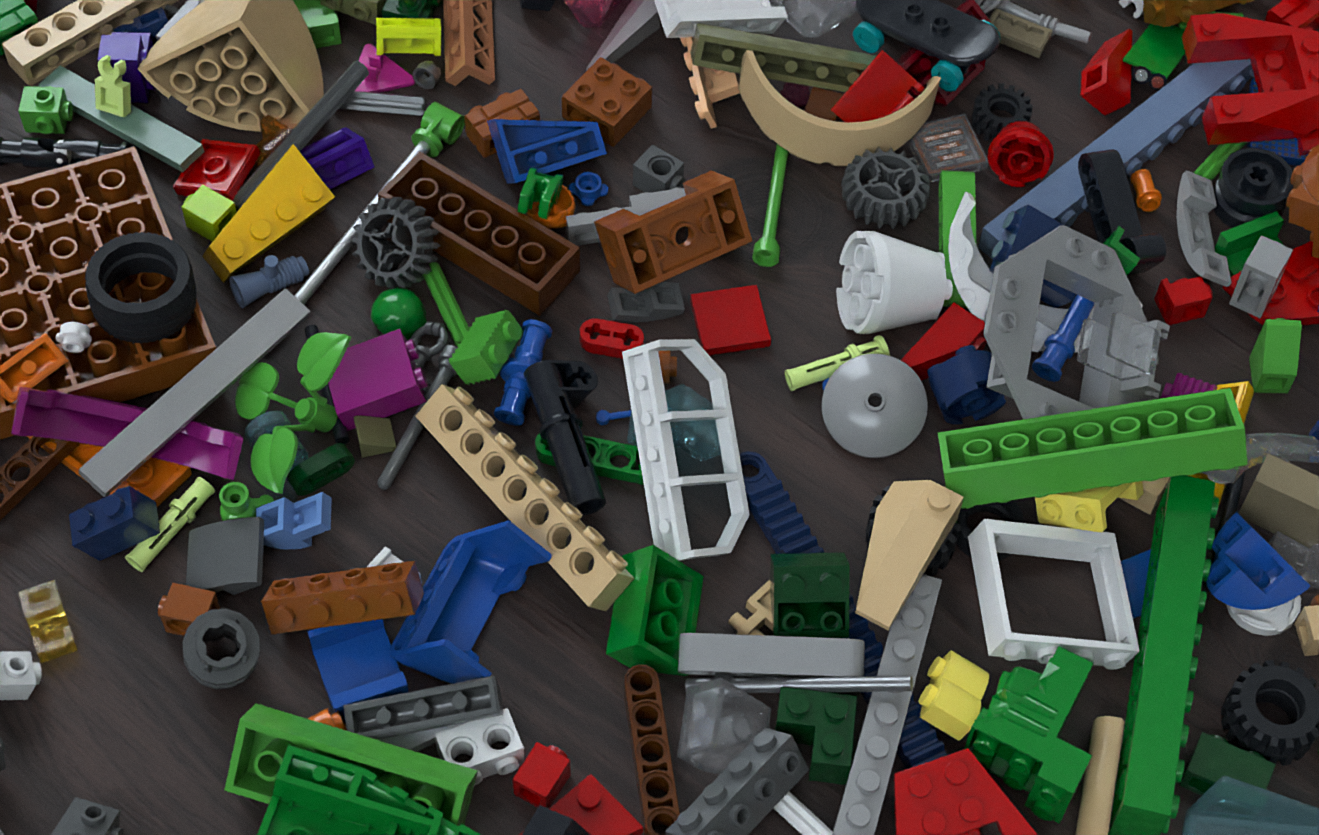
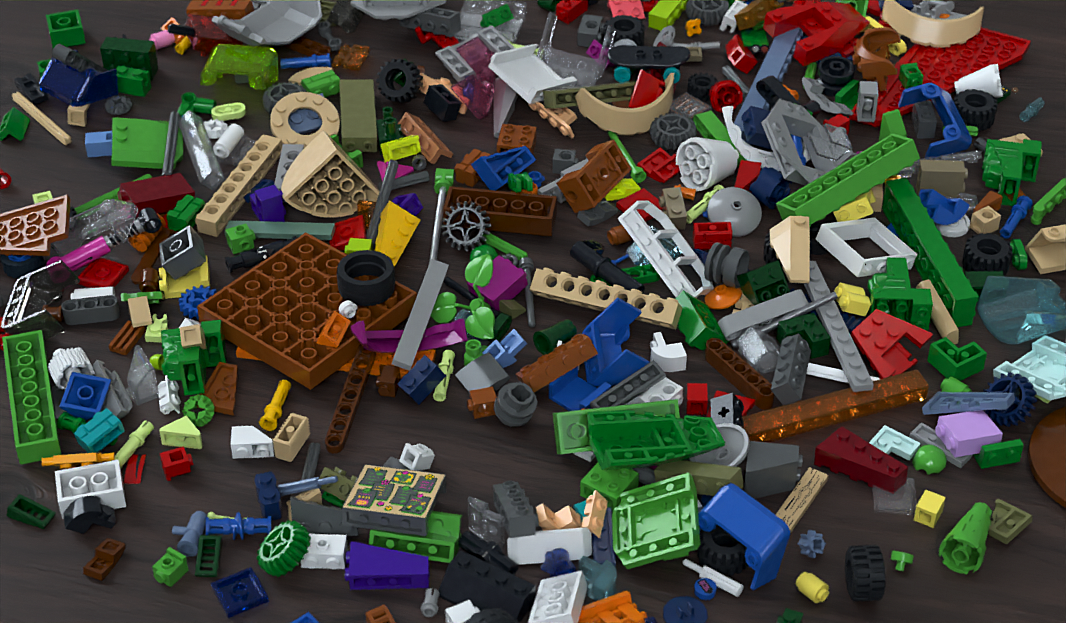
camera: 25 degrees left, 15 degrees down
(47, 621) = (412, 433): clear yellow slope -> none
(70, 494) = (388, 380): none -> reddish brown brick
(111, 92) = (274, 216): yellowish green plate -> none
(269, 279) = (411, 266): sand blue piece -> none
(396, 530) = (547, 339): none -> dark green plant
(486, 347) = (541, 251): bright green brick -> none
(516, 389) = (562, 256): blue piece -> none
(551, 662) = (668, 357): none -> white brick
(611, 337) = (594, 231): red beam -> none
(725, 271) = (623, 189): none -> neon yellow slope
(737, 576) = (722, 297): none -> orange dish
(761, 523) = (726, 264): none -> dark grey wheel
(769, 354) = (673, 206): none -> dark tan brick
(798, 441) = (709, 233): none -> red brick
(815, 248) = (660, 165): none -> red slope
(819, 323) = (687, 192): none -> orange pin
(1071, 122) = (731, 75): none -> dark grey axle

